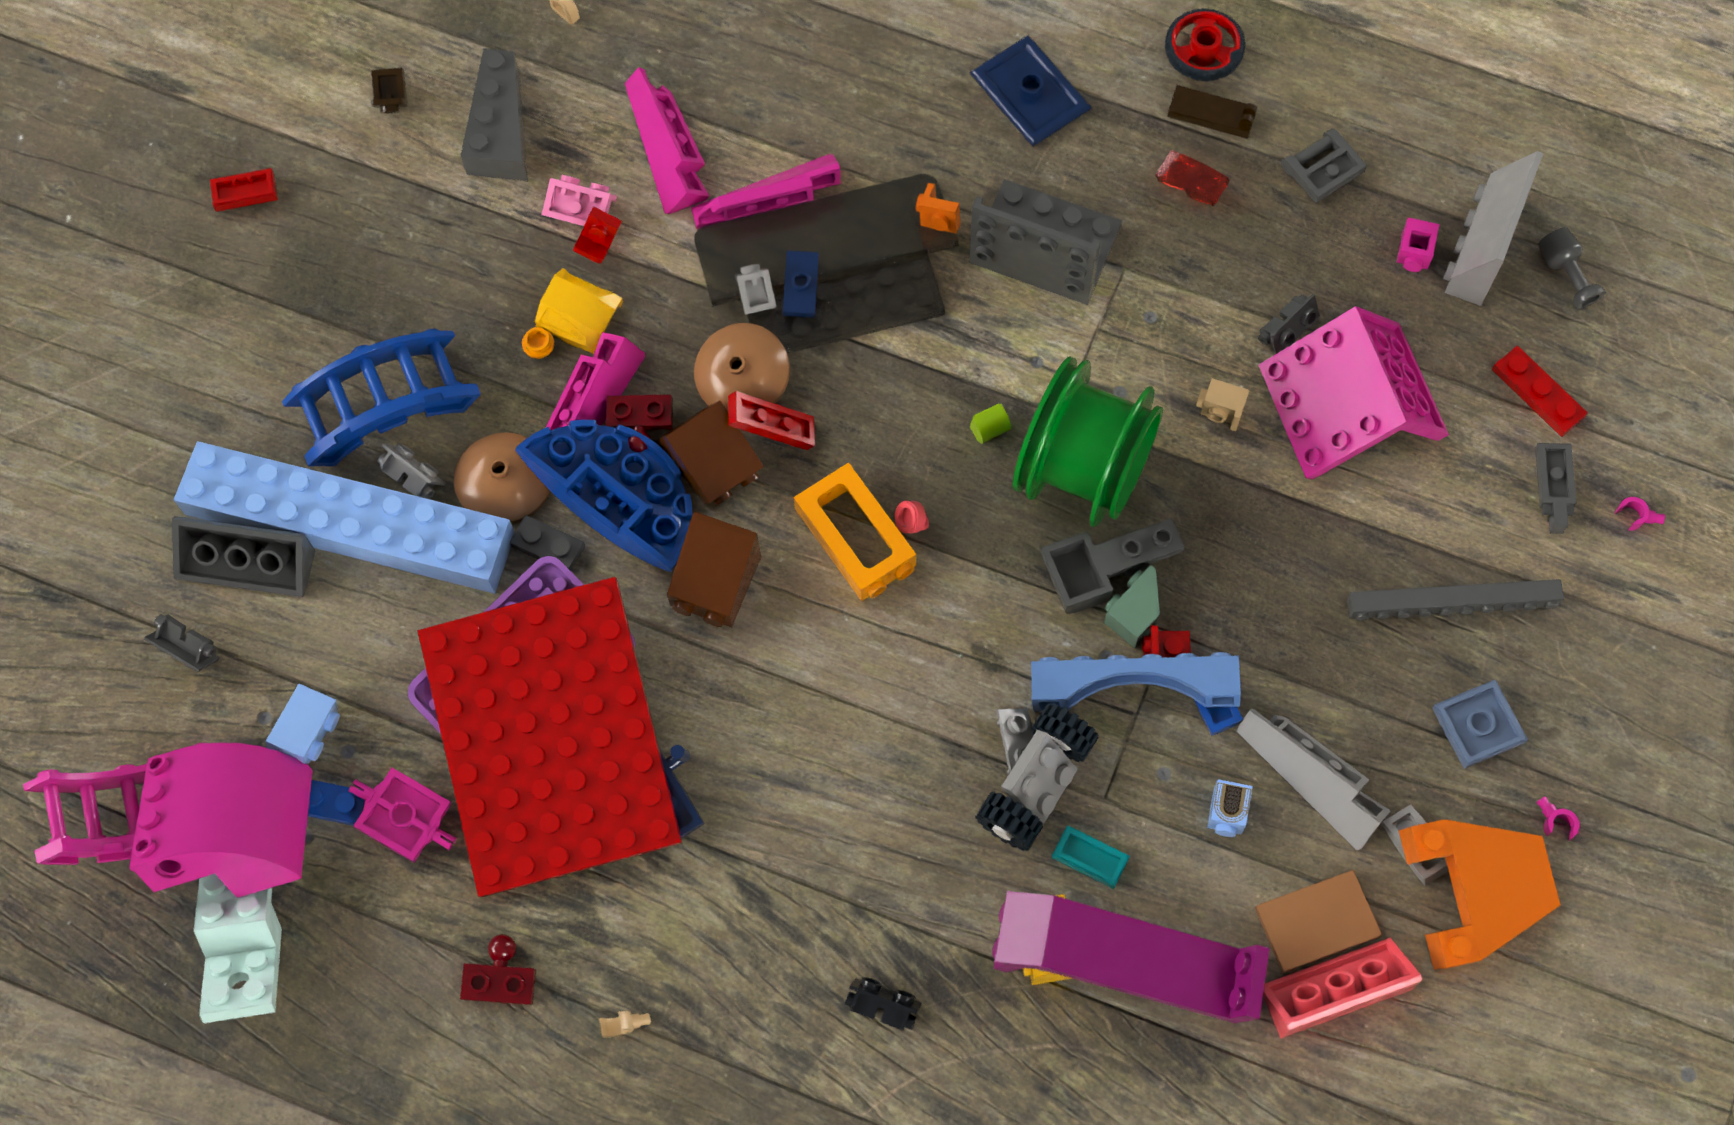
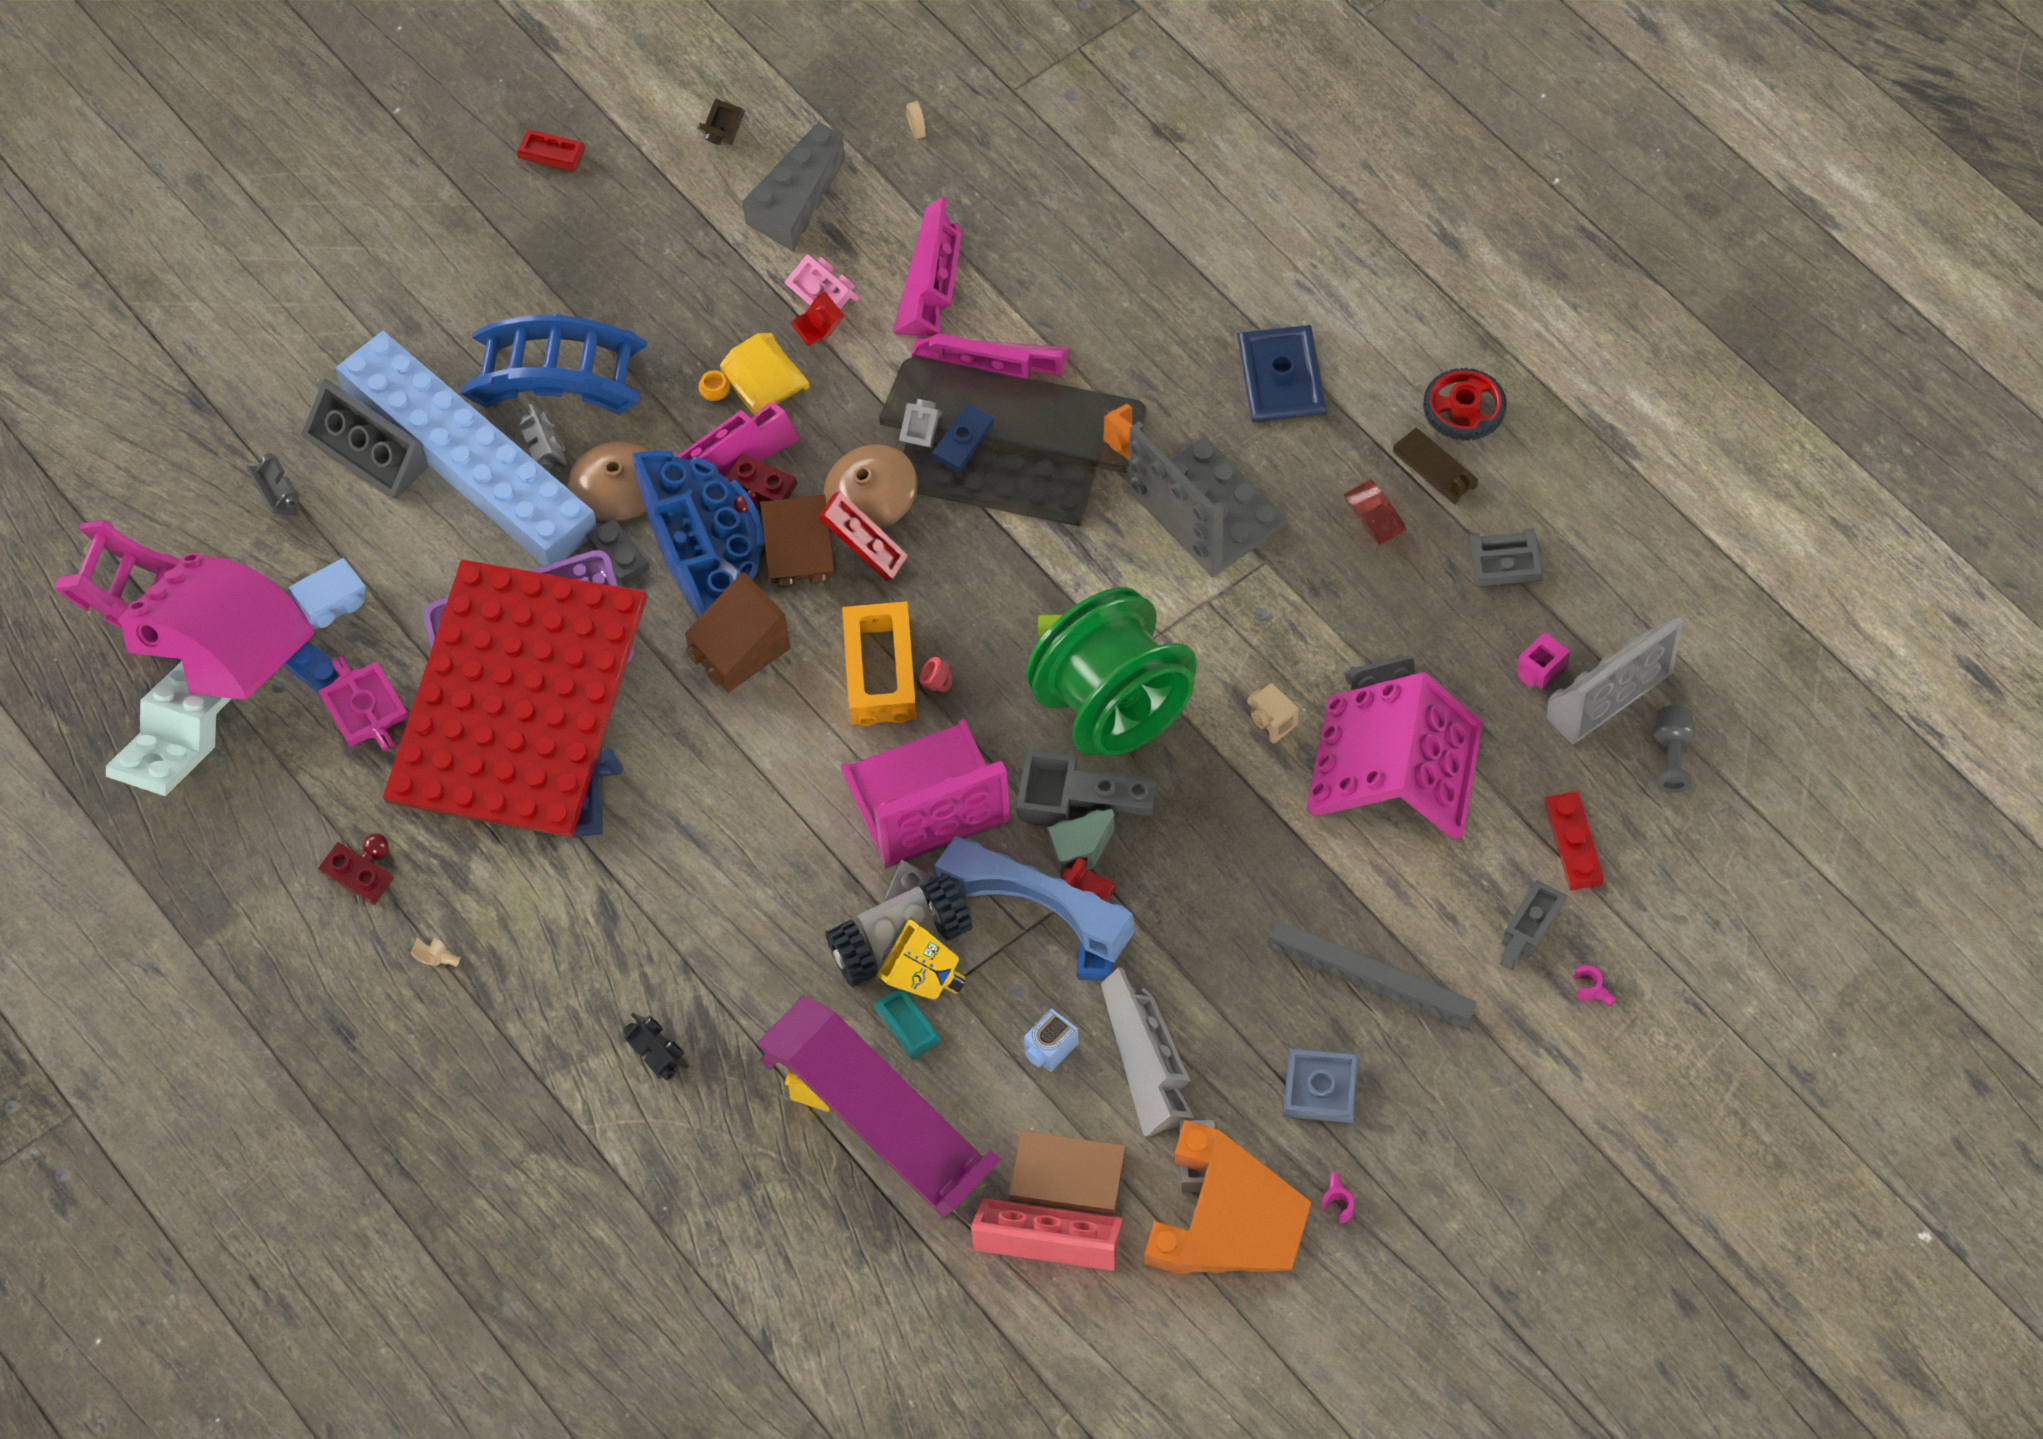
camera: 30 degrees right, 10 degrees down
(975, 632) = (928, 794): none -> dark pink bracket
(1077, 800) = (921, 964): none -> yellow torso

